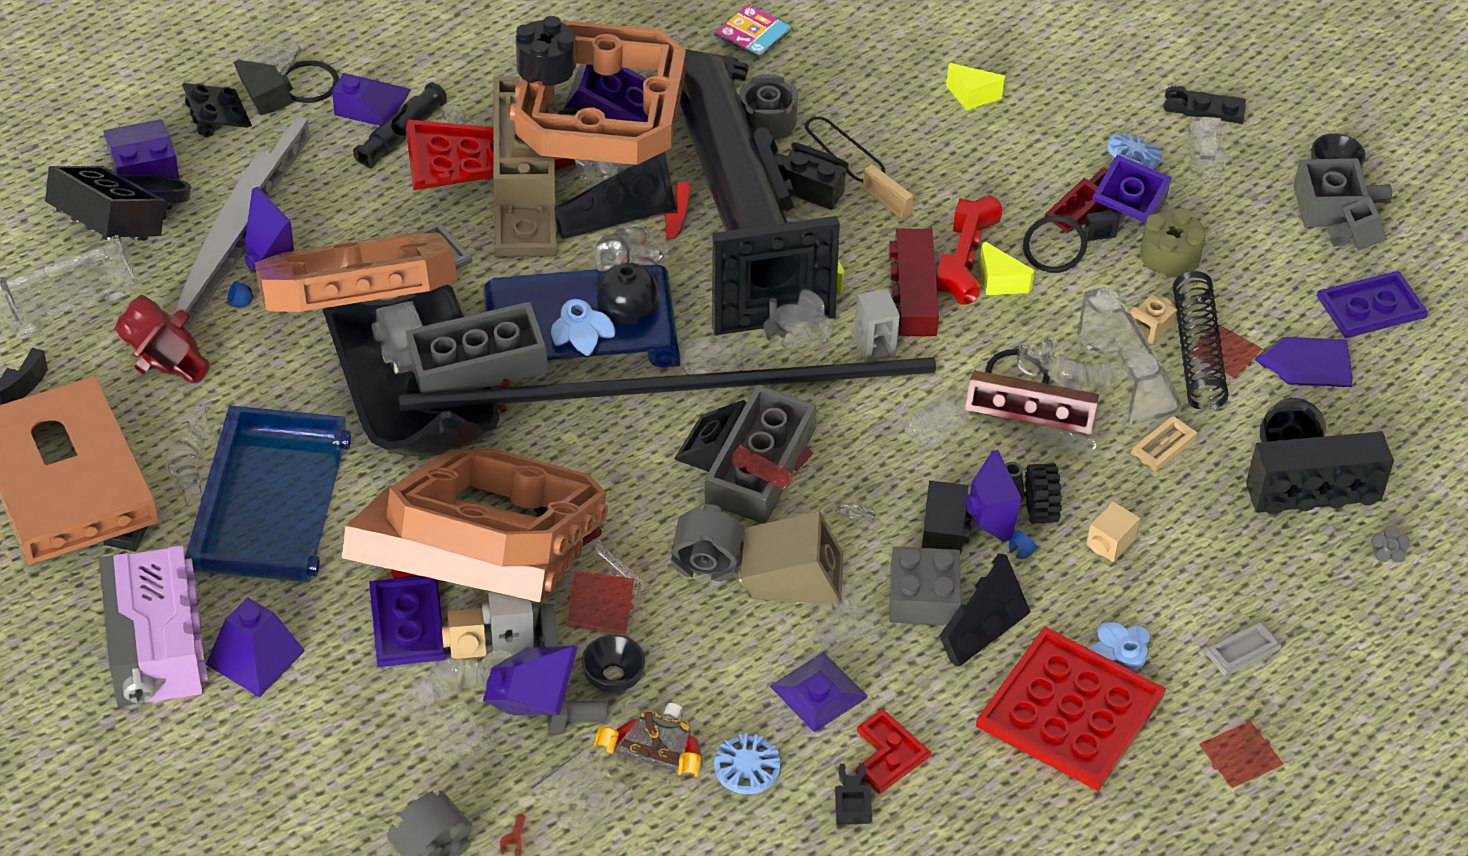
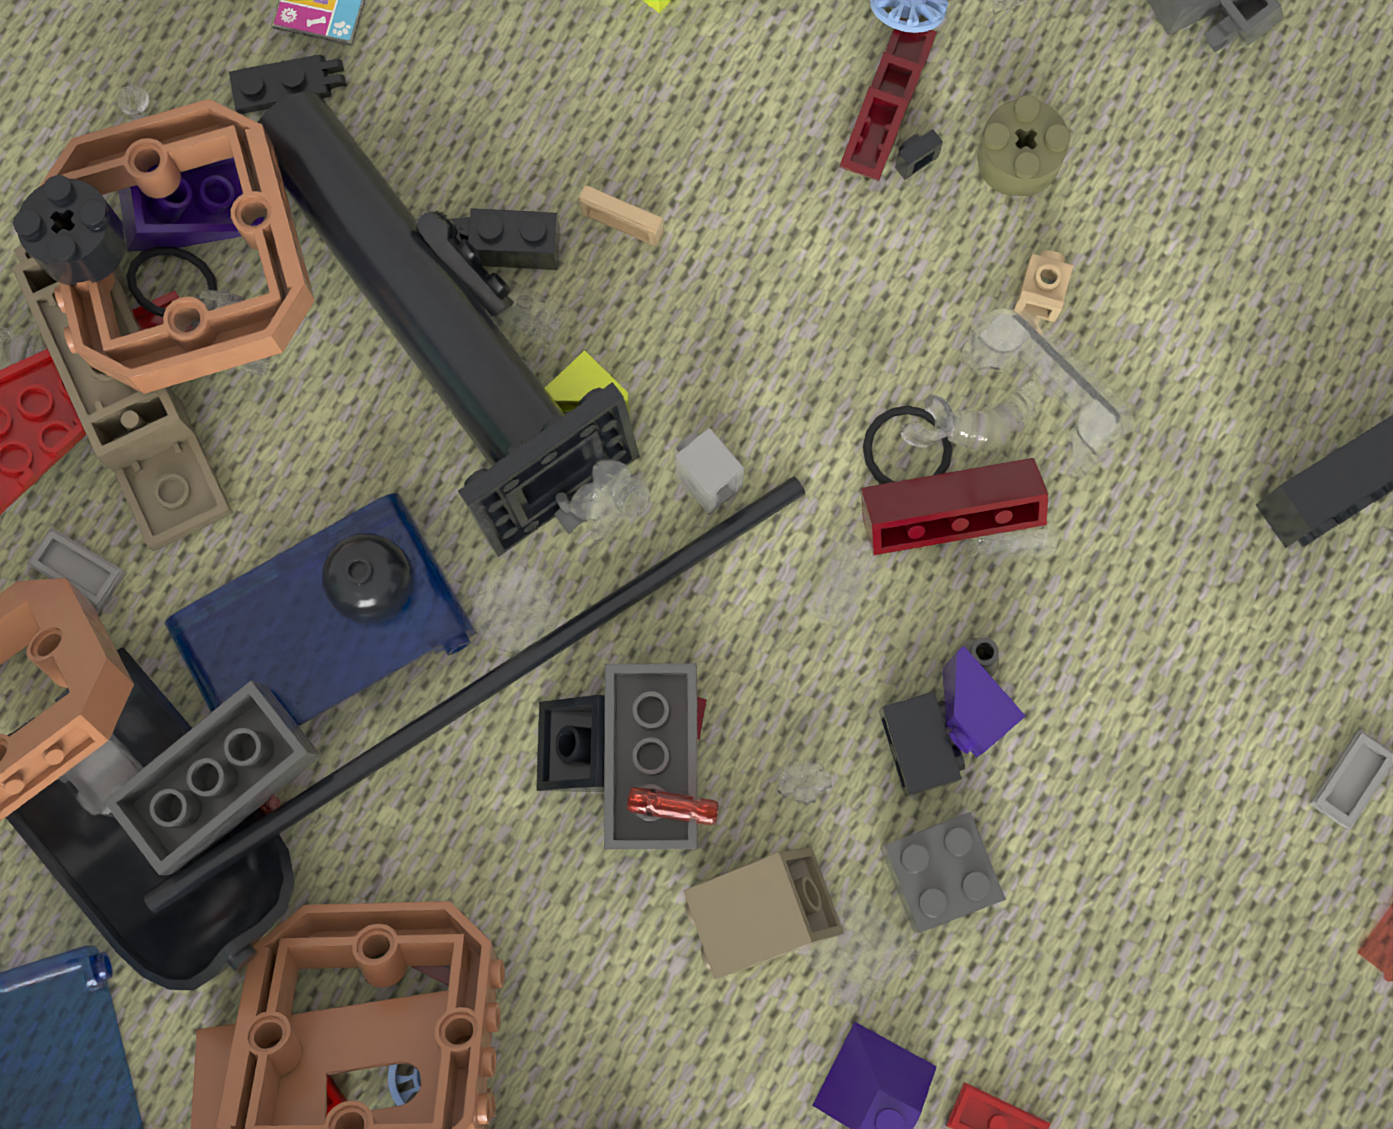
camera: 20 degrees left, 30 degrees up
(581, 329) = (333, 667): light blue plate -> none
(600, 602) = (550, 1086): clear red piece -> none
(613, 565) = (556, 1013): clear slope -> none
(625, 197) = (275, 395): black wing -> none
(629, 246) = (314, 505): clear piece -> none
(674, 221) = (362, 378): red slope -> none
(707, 543) = (647, 941): dark grey brick -> none
(770, 104) = (409, 114): dark grey brick -> none
(819, 154) = (508, 208): black piece -> none
(845, 135) = (539, 136): black piece -> none
(915, 281) = (722, 360): dark red brick -> none
(953, 271) = (762, 322): red plate -> none
(987, 615) = (1041, 873): black wing -> none
(1003, 273) = (824, 293): neon yellow slope -> none
(1025, 544) = (1030, 738): blue hinge -> none
(1043, 493) = (1030, 659): black tyre -> none
(1058, 218) = (911, 205): black tyre -> none
(1071, 708) = (1190, 976): red plate -> none
(1113, 531) = (1136, 678): tan brick -> none
(1122, 645) = (1202, 840): light blue plate -> none
(1133, 189) = (943, 87): dark purple slope -> none
(1156, 464) = (1121, 522): tan tile -> none
(1209, 378) = (1171, 383): black piece -> none
(1236, 351) = (1148, 292): clear red piece -> none
(1292, 420) = (1300, 398): black cylinder -> none
(1309, 361) = (1259, 265): dark purple tile -> none
(1372, 304) = (1300, 134): dark purple tile -> none

